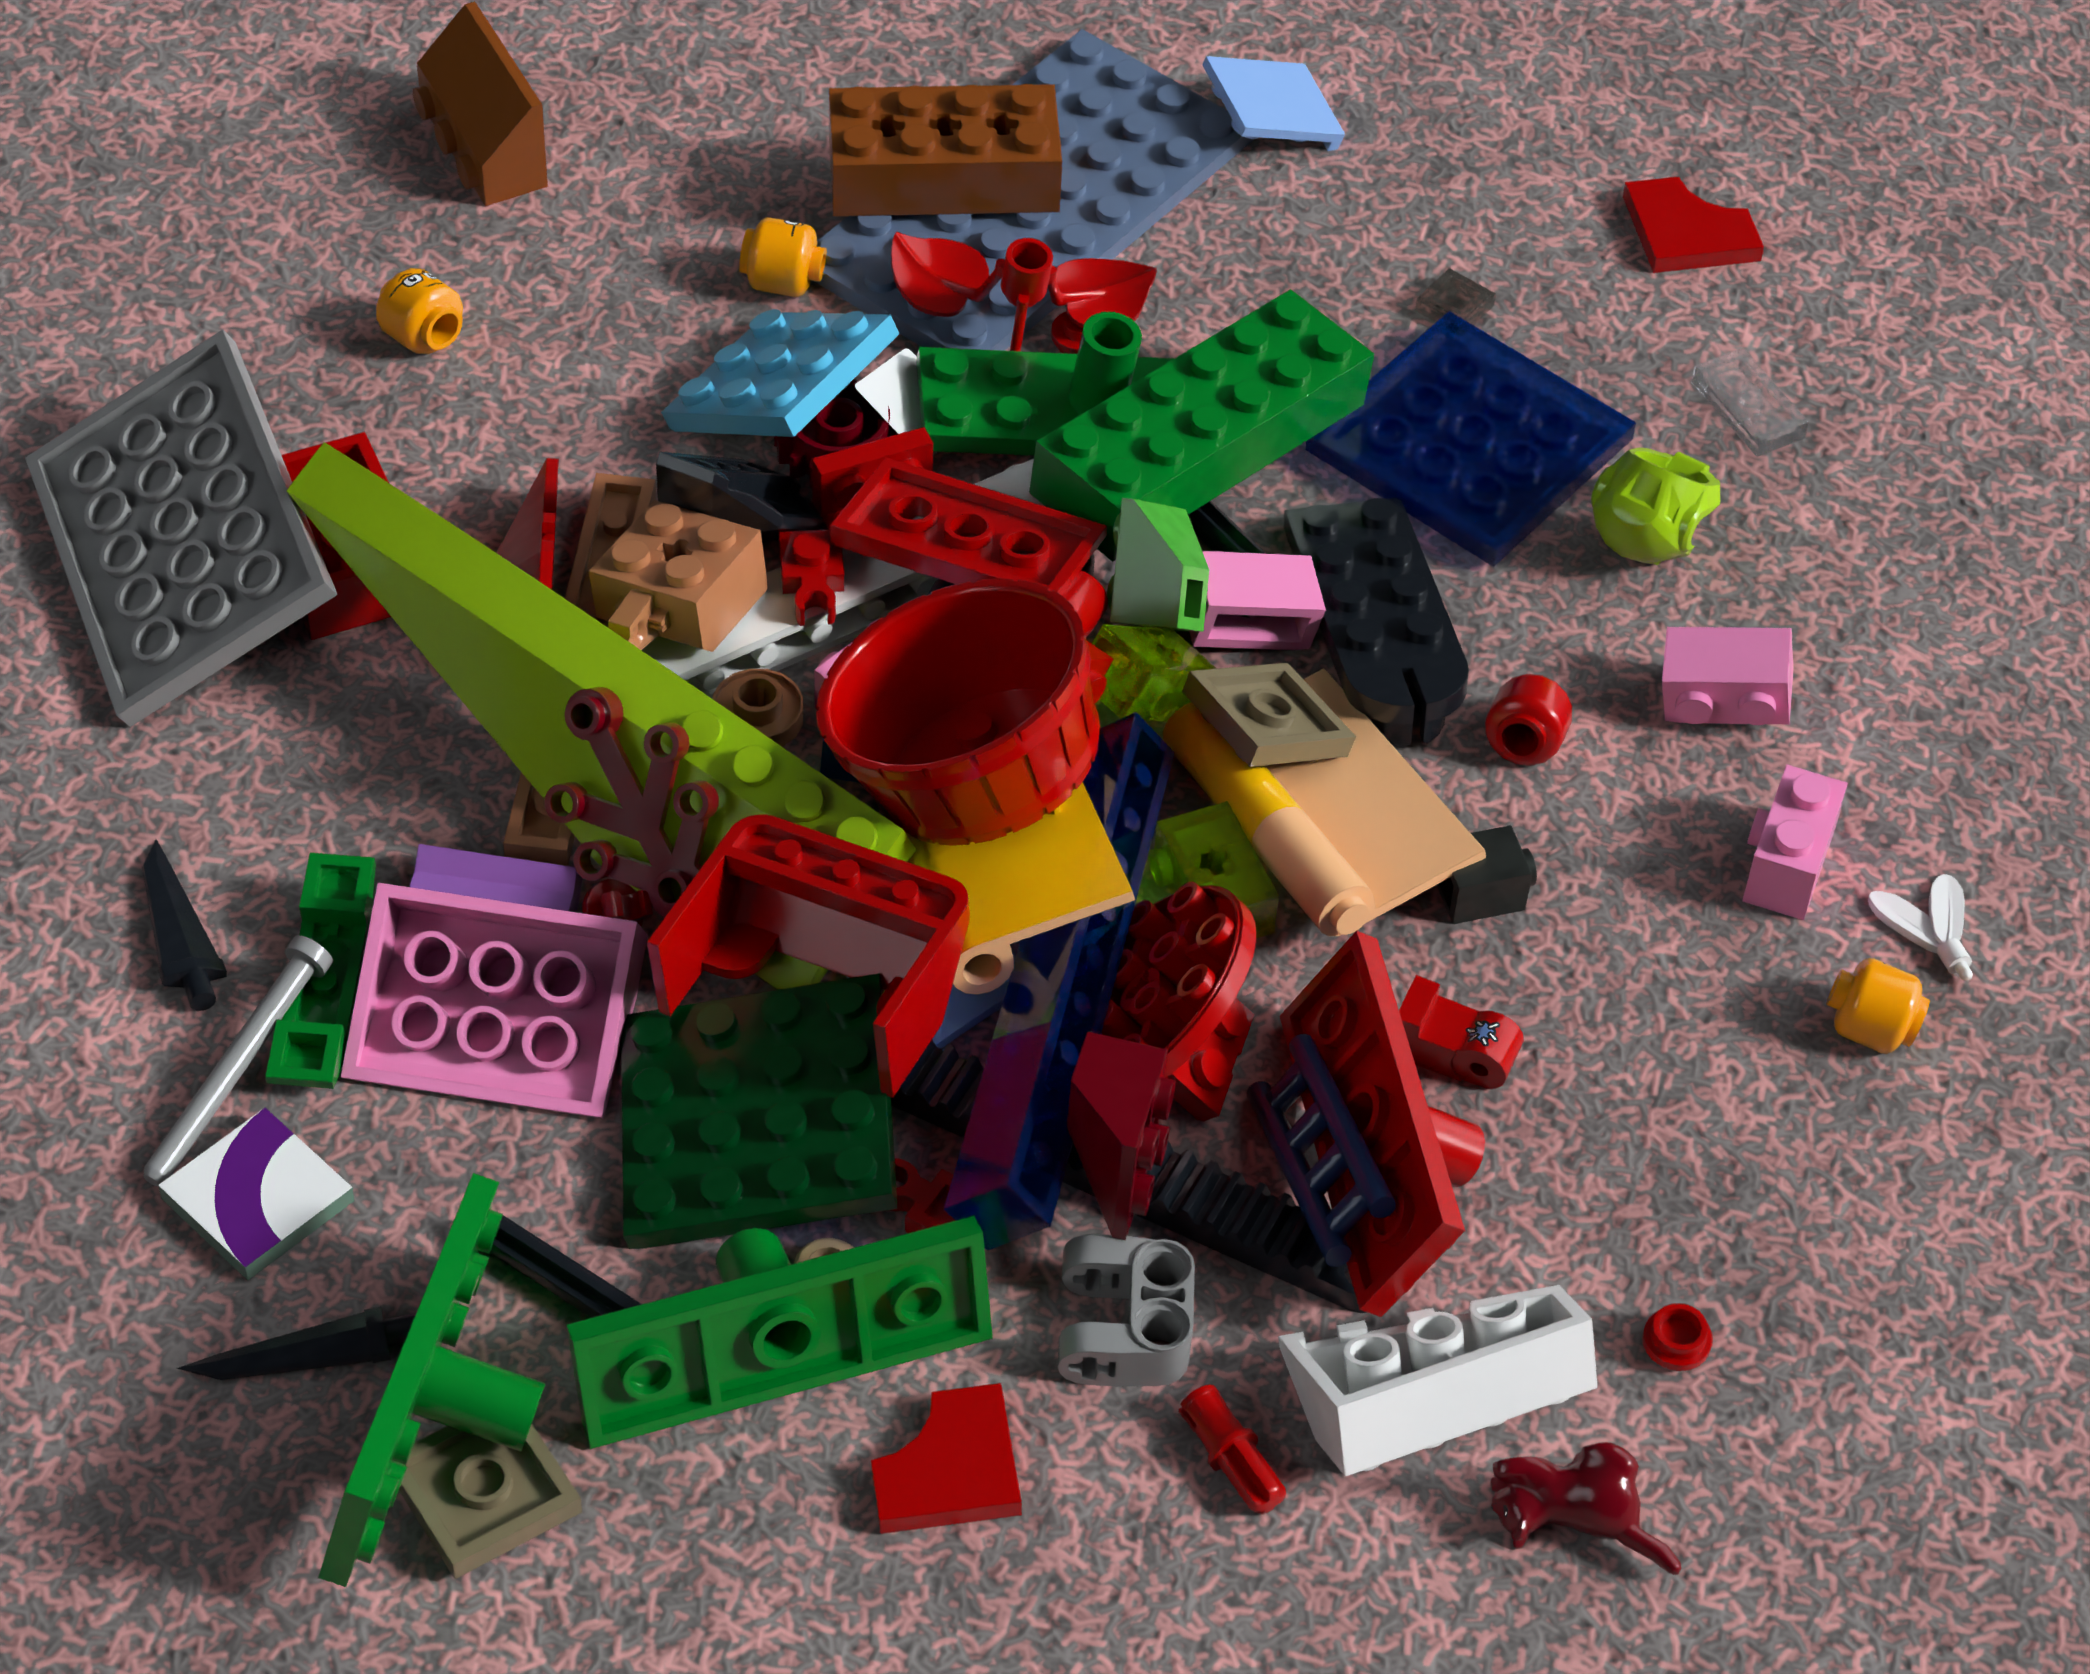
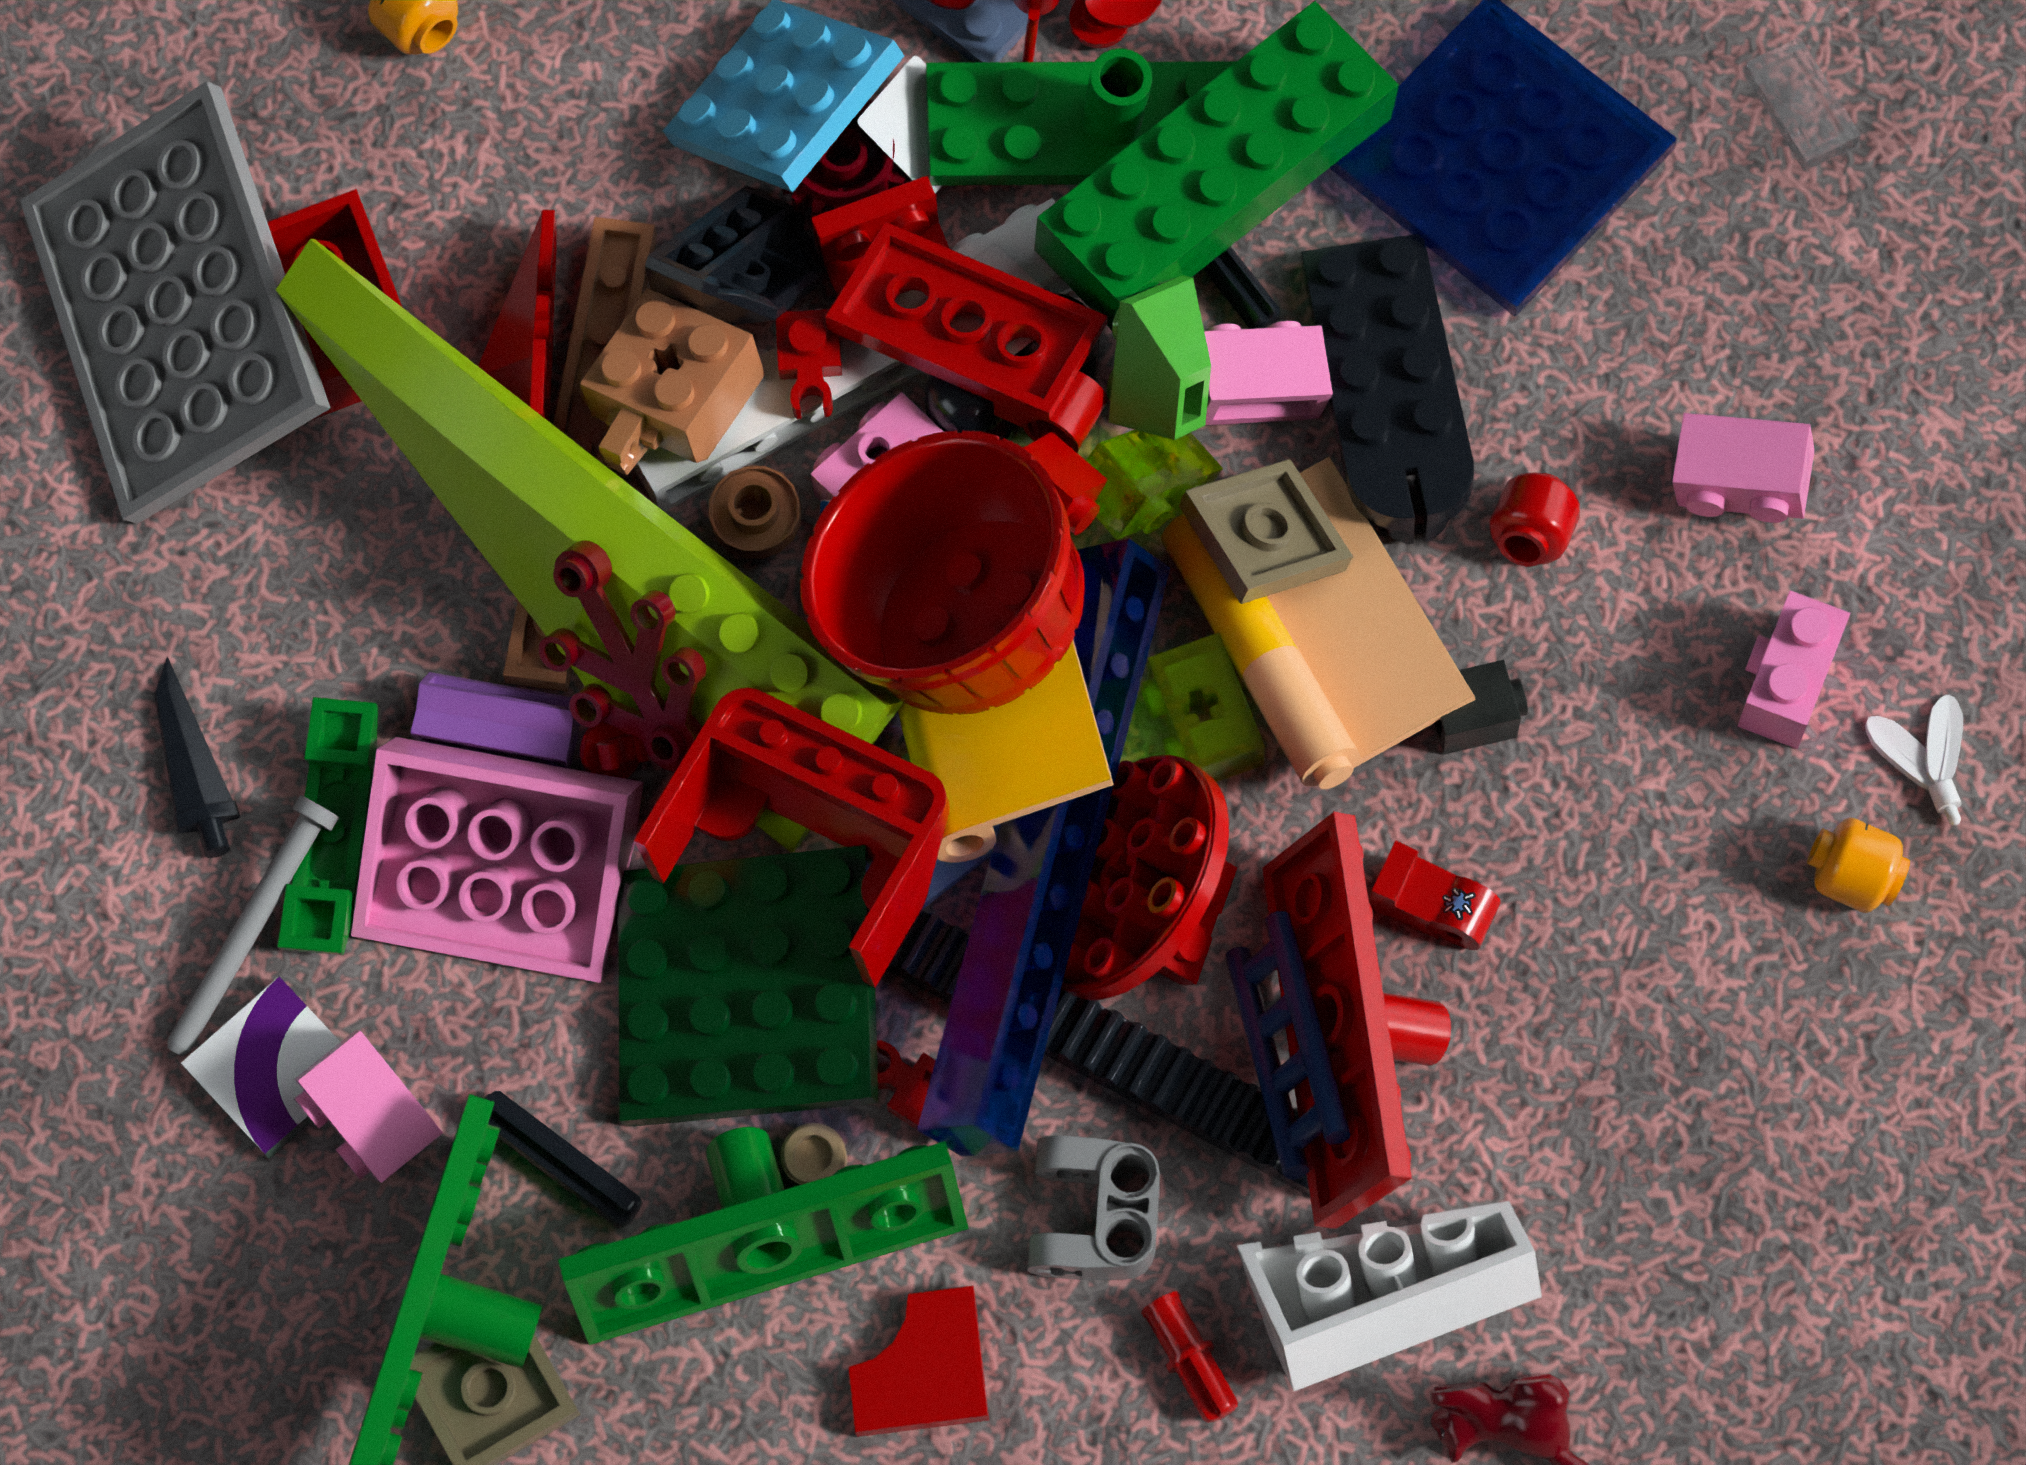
camera: 10 degrees right, 20 degrees up
(335, 1343) = (349, 1232): black bar -> none
(357, 1213) = (366, 1107): none -> bright pink brick
(1115, 1124) = (1088, 1036): dark red slope -> none
(1653, 504) = (1675, 272): lime helmet -> none
(1677, 1337) = (1625, 1237): red plate -> none

